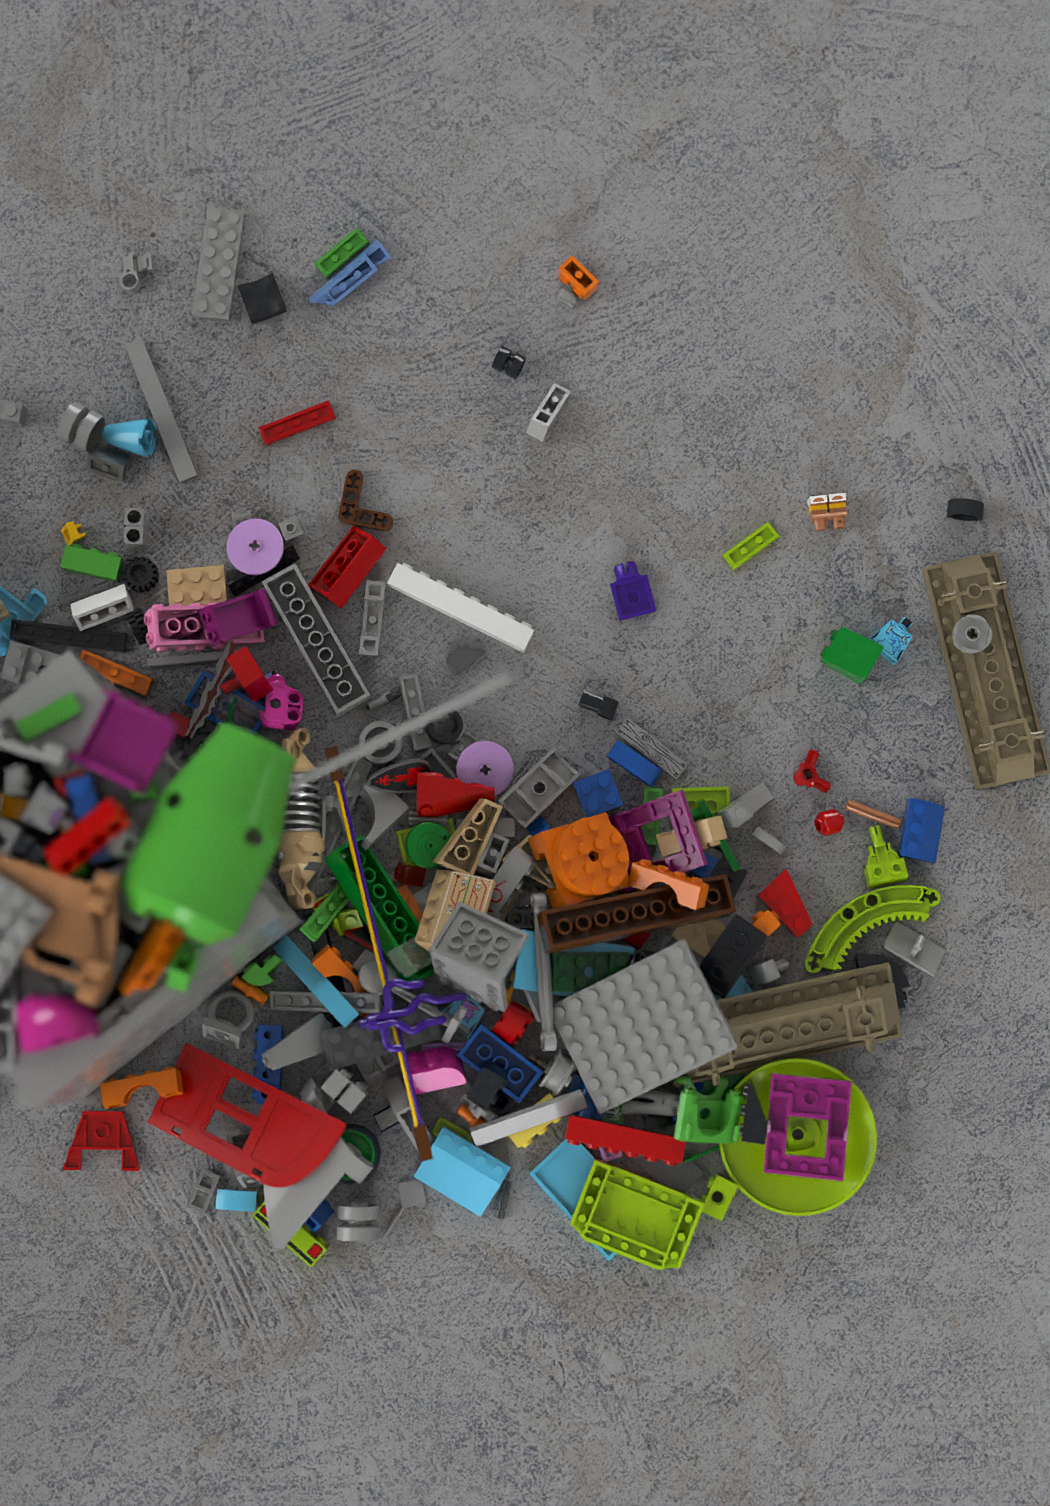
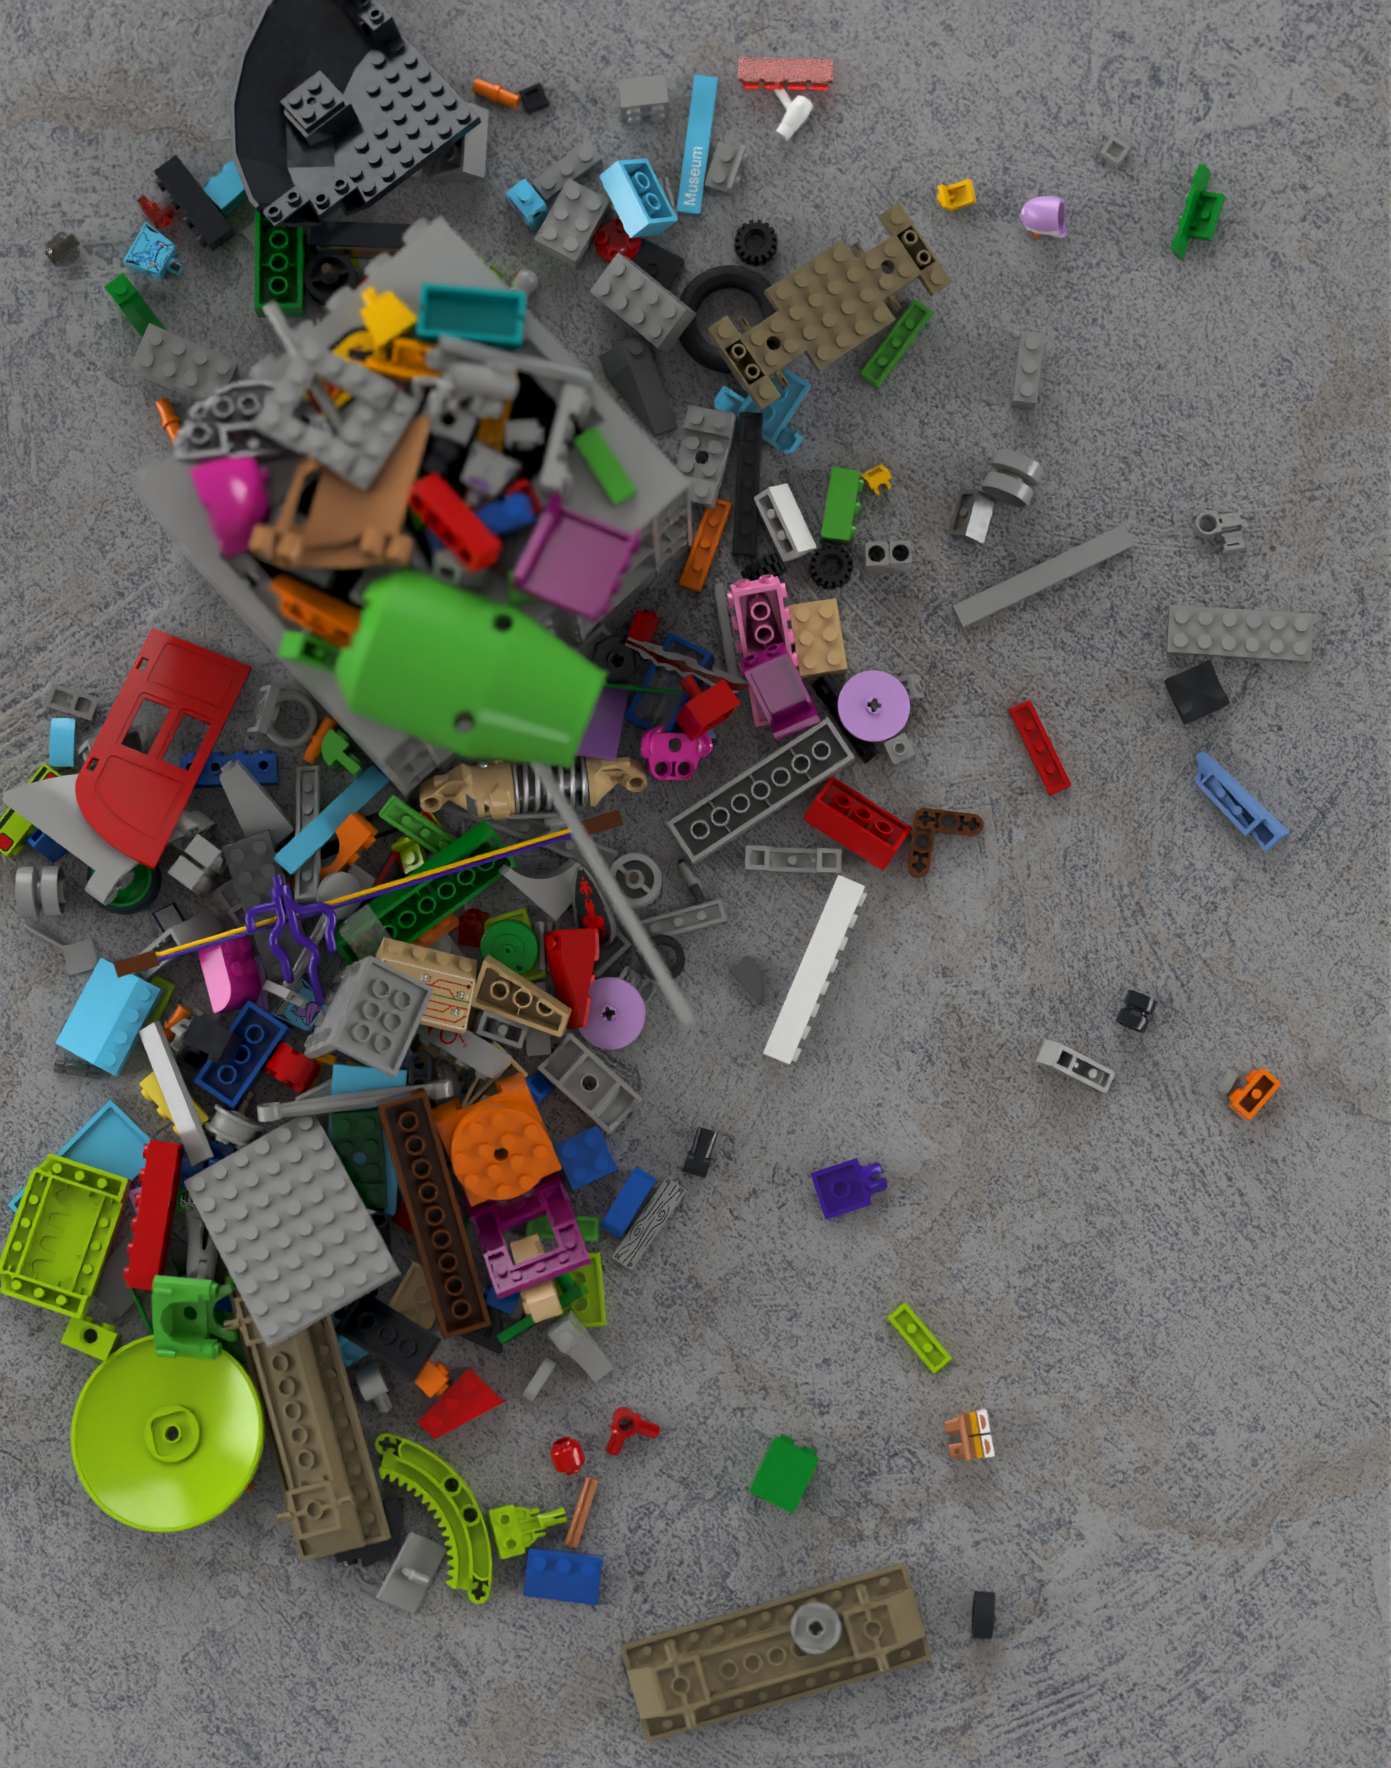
camera: 90 degrees right, 0 degrees up
(102, 1132) = (137, 575): red wing -> none
(117, 1092) = (185, 590): orange arch -> none
(132, 436) = (1005, 543): medium azure cone -> none
(341, 253) = (1266, 789): bright green tile -> none
(689, 891) = (462, 1278): orange arch -> none
(755, 1121) = (184, 1377): black slope -> none
(810, 1099) = (211, 1443): magenta piece -> none
(894, 639) = (808, 1527): medium azure torso -> none

